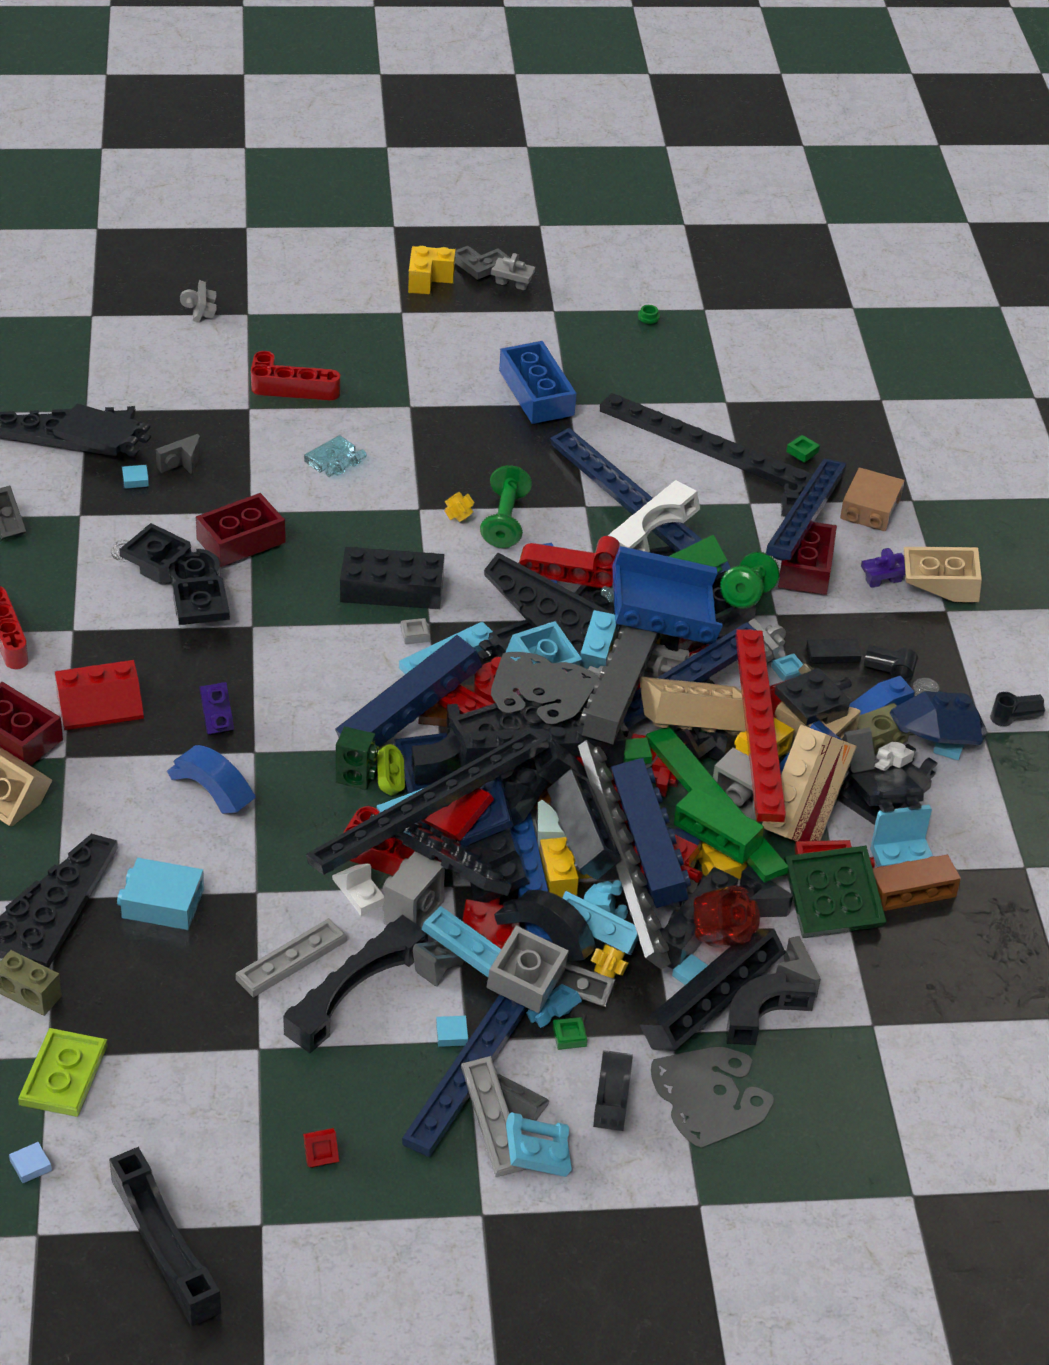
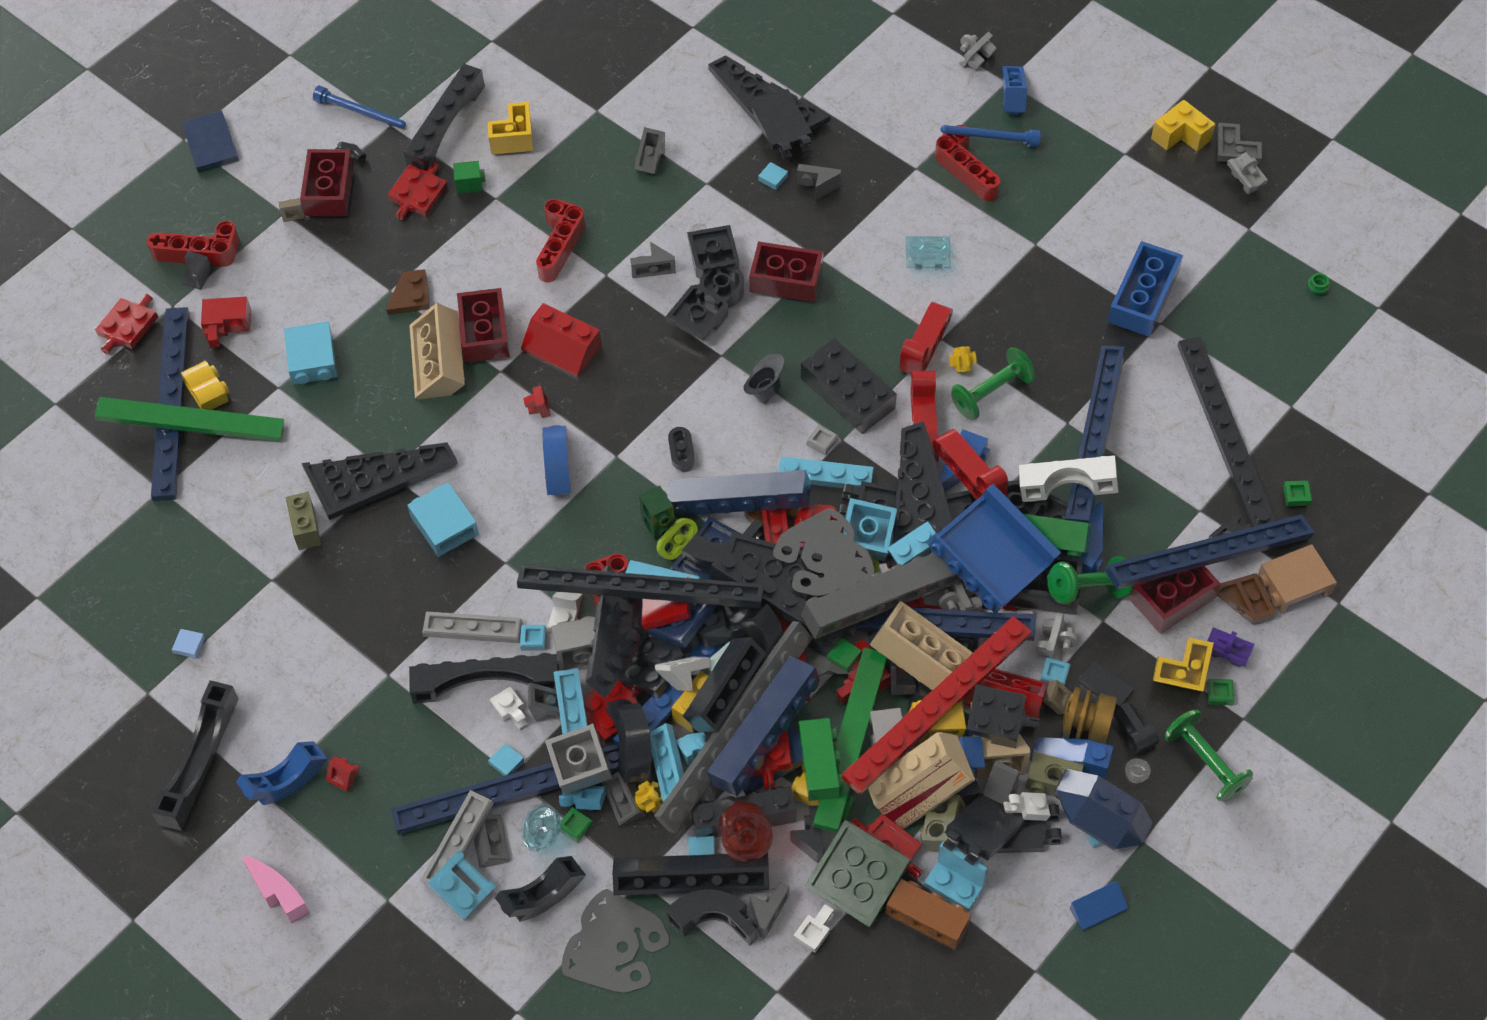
camera: 50 degrees right, 15 degrees up
(63, 1072) = (266, 598): lime tile -> none
(111, 591) = (657, 264): none -> dark grey slope
(138, 753) = (537, 402): none -> red tile
(216, 708) = (617, 405): dark purple hips -> none
(266, 311) = (1014, 89): none -> blue slope
(273, 1183) = (286, 777): none -> blue arch
(308, 707) = (681, 450): none -> black plate
(319, 336) = (1030, 137): none -> blue piece
(319, 610) = (765, 379): none -> black piece
(356, 926) = (533, 637): none -> medium azure tile
(375, 1280) = (276, 889): none -> bright pink slope
(402, 989) = (509, 706): none -> white plate
(418, 519) = (919, 351): none -> red beam
(465, 553) = (923, 402): none -> red beam
(533, 847) = (679, 672): none -> white slope
(551, 1049) = (541, 827): none -> clear light blue piece
(848, 958) = (814, 931): none -> white plate
(852, 811) = (937, 822): none -> olive brick
(858, 532) = (1247, 598): none -> reddish brown wing
(862, 663) = (1089, 716): none -> pearl gold wheel
(881, 595) = (1190, 671): none -> yellow brick
(912, 603) = (1220, 692): none -> green tile
(945, 571) = (1268, 686): tan slope -> none
(963, 640) = (1232, 783): none -> green hose
(1010, 707) = (1187, 844): black piece -> none
(1013, 791) = (1098, 906): none -> blue slope

